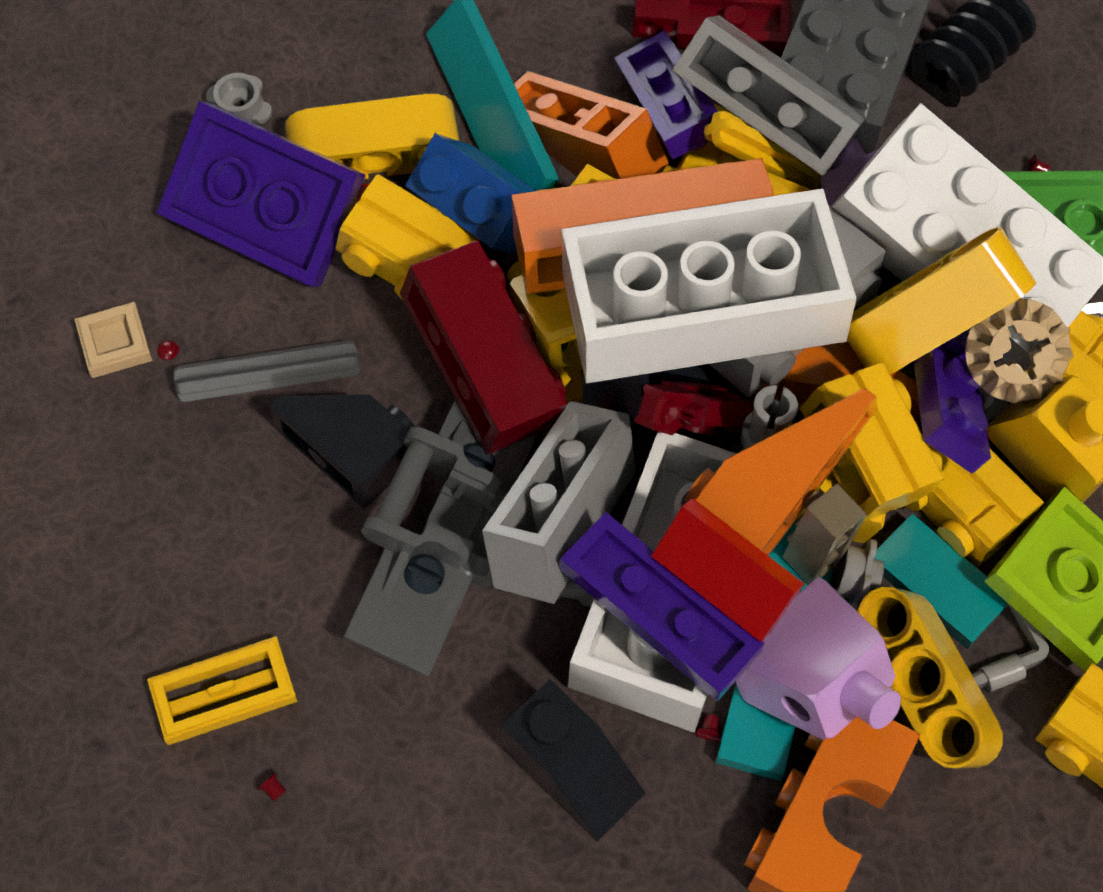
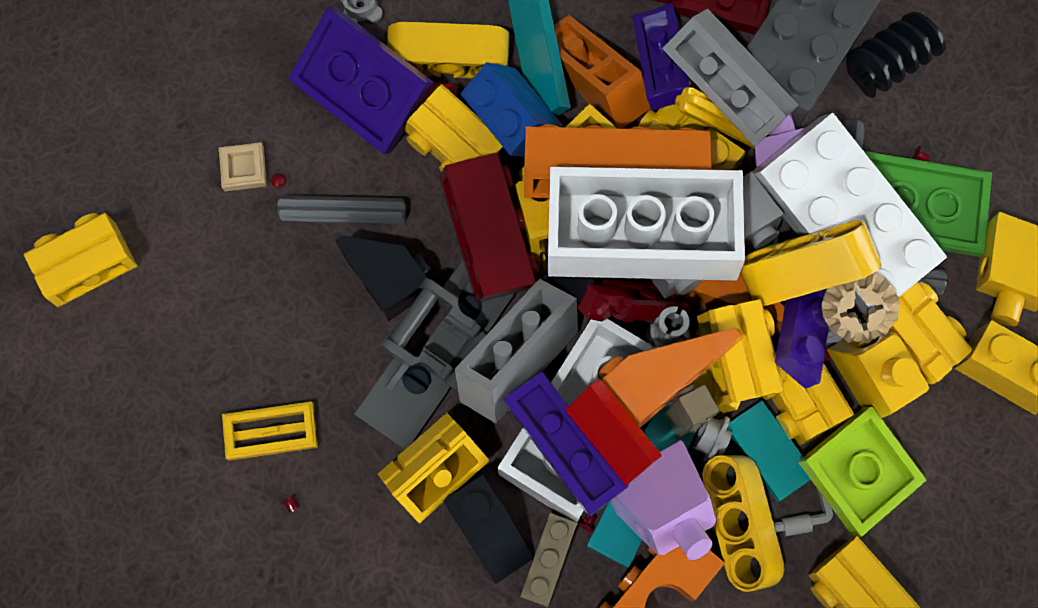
camera: 15 degrees right, 10 degrees up
(475, 687) = (433, 467): none -> yellow brick
(667, 789) = (548, 560): none -> dark tan piece

